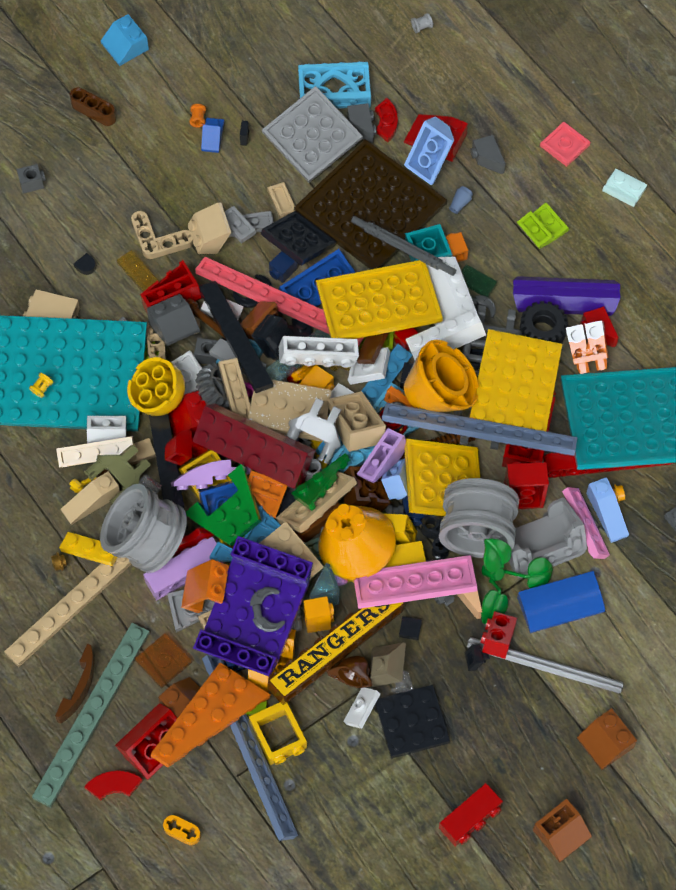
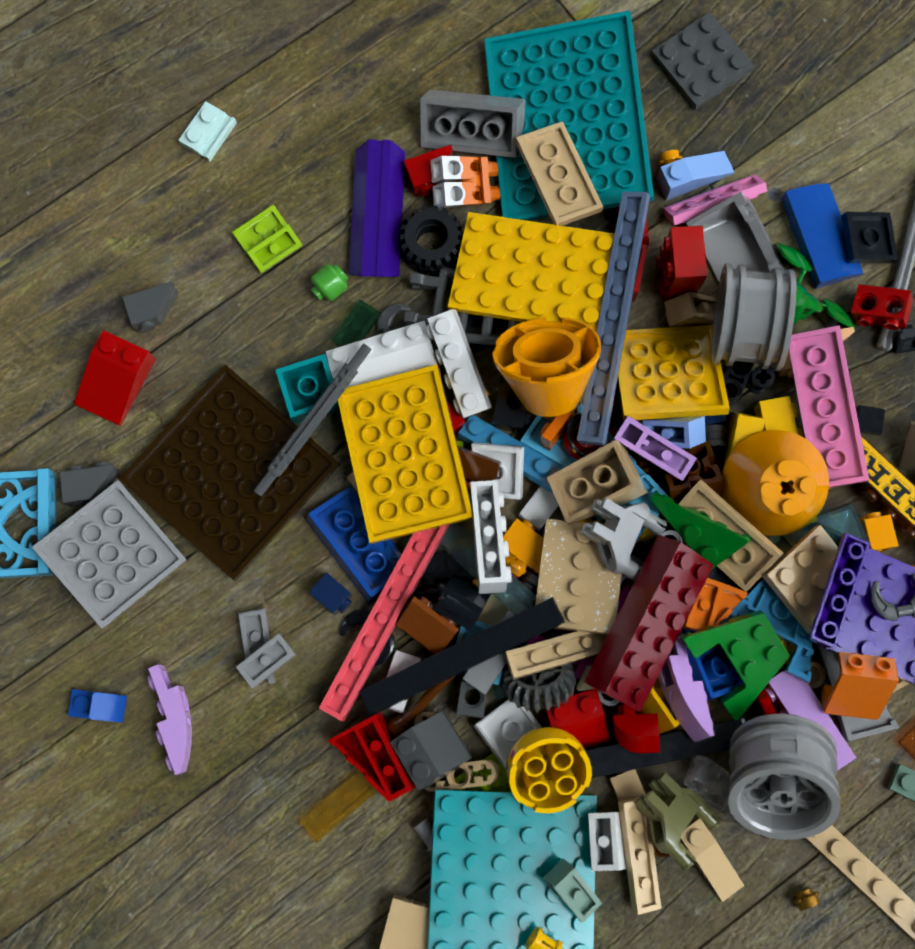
camera: 90 degrees left, 15 degrees up
(76, 401) = (572, 889): none -> sand green plate
(77, 486) = (686, 880): yellow hand -> none
(85, 265) = (322, 890): black tile -> none
(86, 548) = (783, 866): yellow plate -> none
(92, 106) = (28, 904): reddish brown beam -> none
(157, 243) = (287, 781): tan beam -> none
(196, 178) = (177, 728): none -> lavender slope
(198, 112) = (63, 729): orange bush -> none
(209, 229) = (273, 702): tan slope -> none
(244, 133) = (99, 656): black tile -> none
(281, 199) = (215, 599): tan tile -> none
(298, 237) = (289, 572): black plate -> none
(388, 119) = (81, 447): red tile -> none
(430, 149) = (153, 377): light blue slope -> none
(457, 246) = (301, 350): orange brick -> none
(461, 198) = (222, 345): sand blue cone -> none
(509, 262) = (329, 282): none -> bright green head
(558, 633) = (869, 237): none -> black plate
(565, 144) = (133, 205): coral tile -> none
(593, 402) = (559, 174): none -> tan plate
(637, 352) = (471, 122): none -> light grey slope

